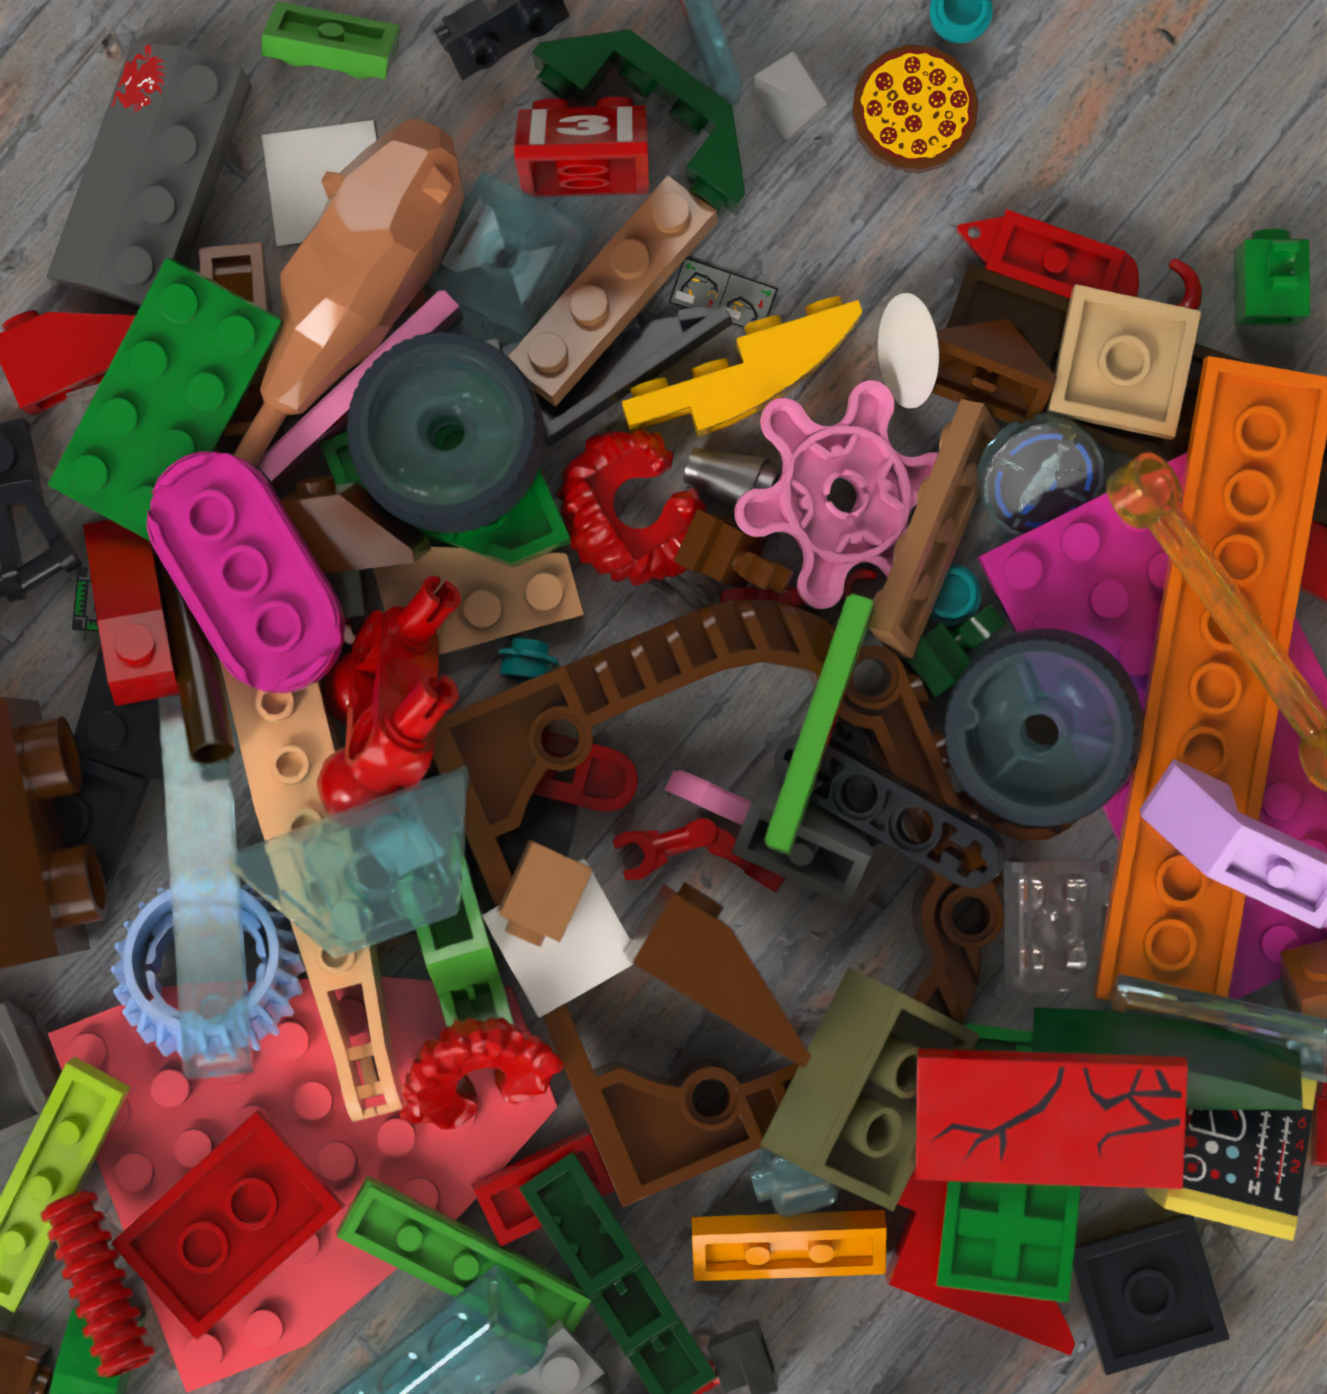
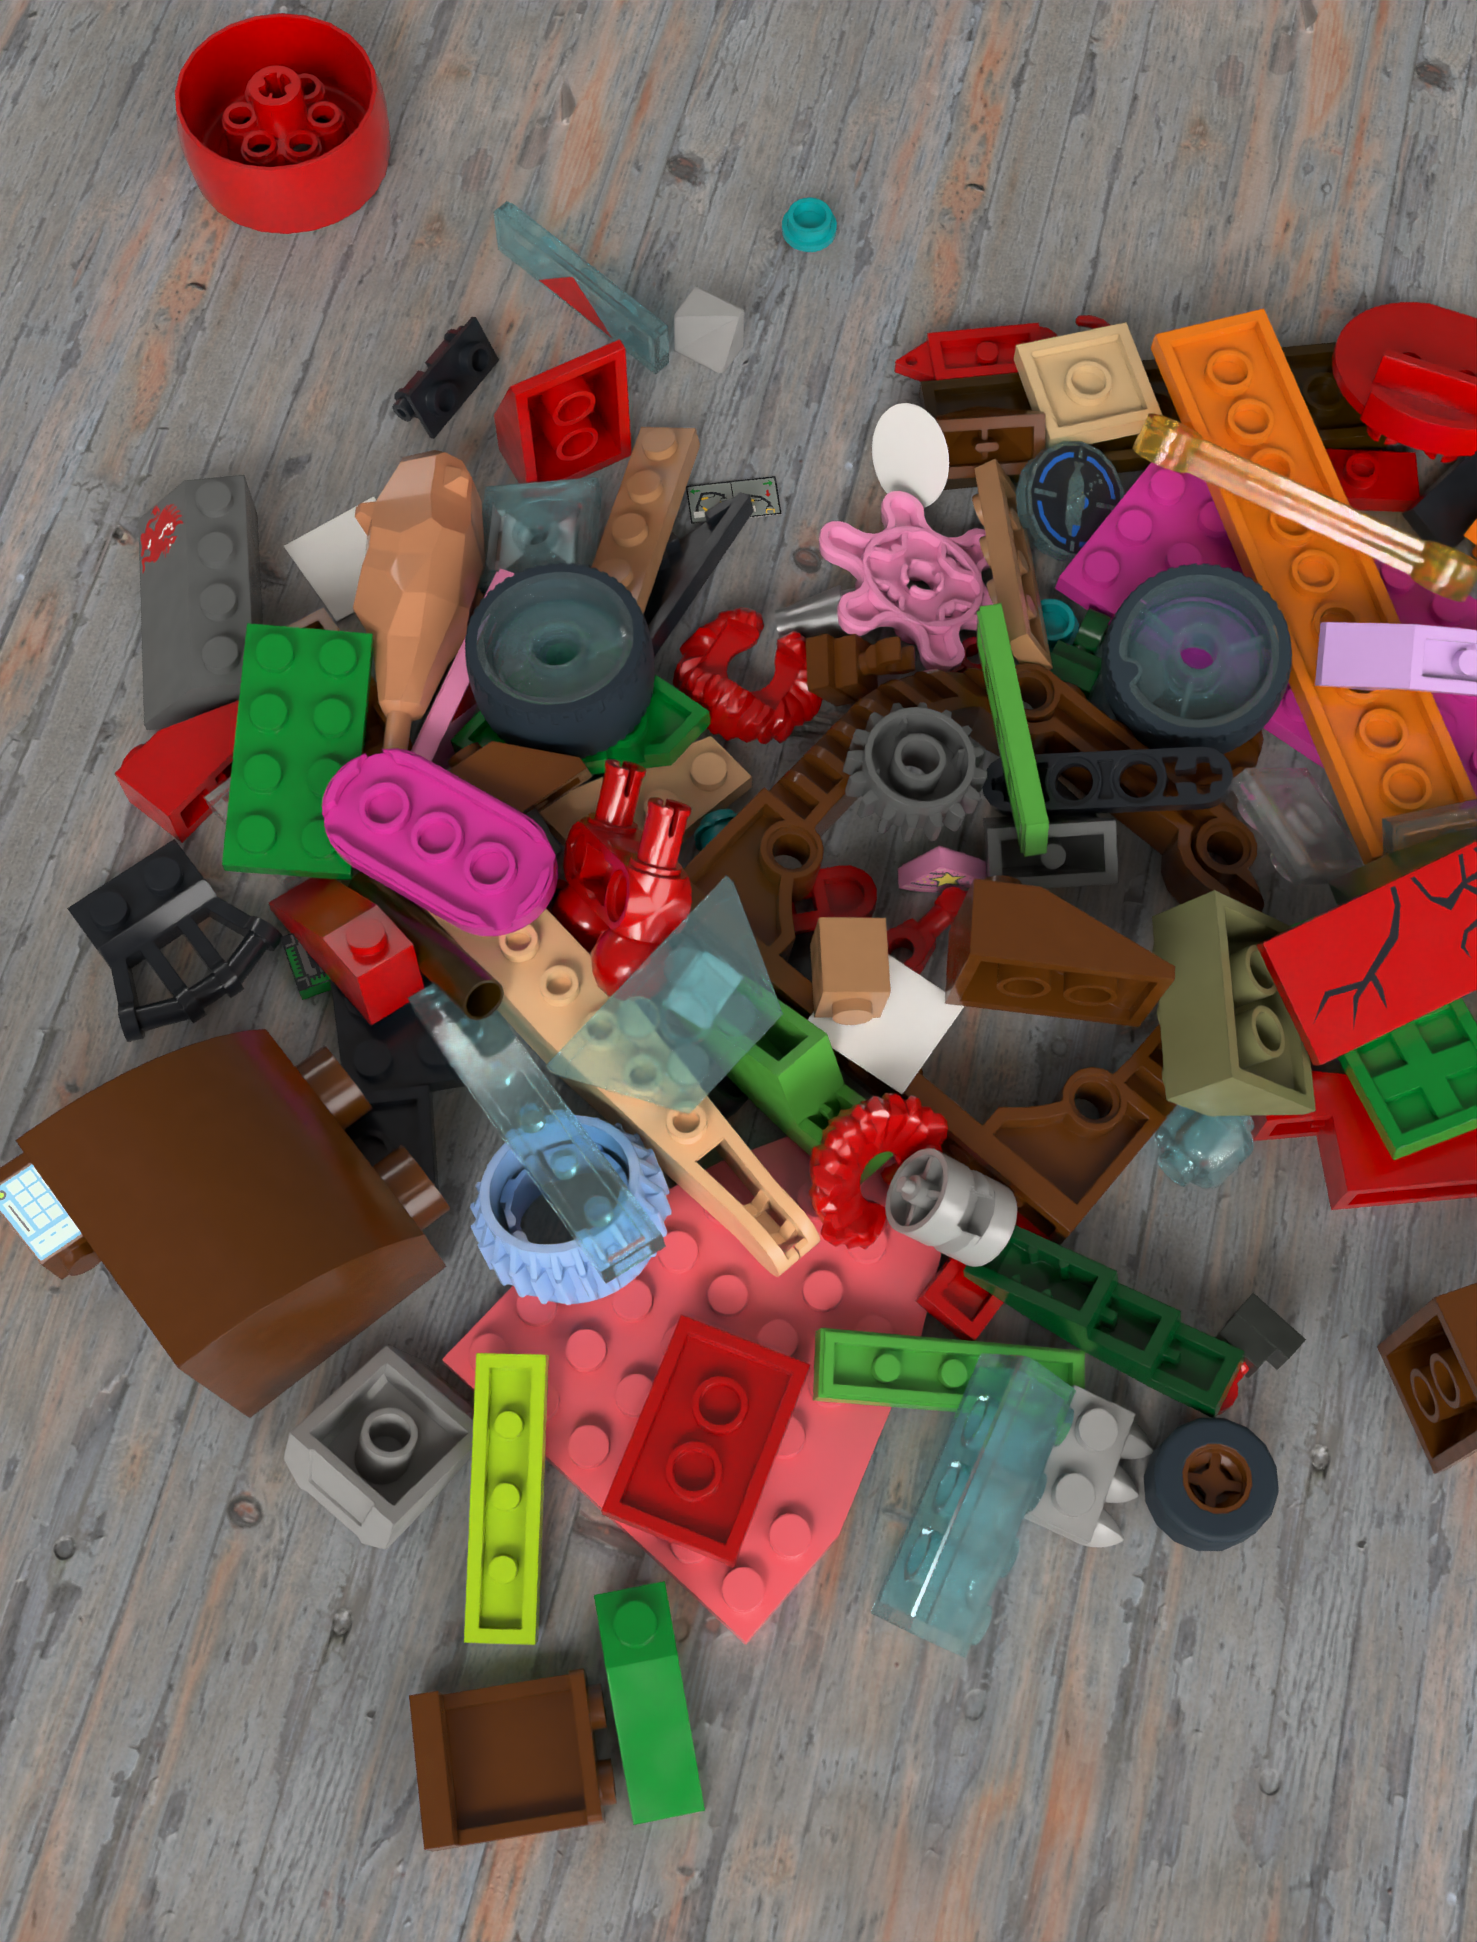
camera: 30 degrees left, 20 degrees down
(97, 1284) = (610, 1547): red piece -> none
(330, 40) = (286, 452): bright green plate -> none
(525, 1141) = (951, 1207): none -> light grey wheel
(581, 64) = (651, 369): dark green slope -> none
(742, 730) = (908, 799): none -> dark grey gear
(772, 364) = (787, 550): yellow slope -> none
(789, 1247) = (1234, 1213): light orange plate -> none
(914, 108) = (812, 305): tile -> none
(1271, 279) = (1162, 291): green brick -> none

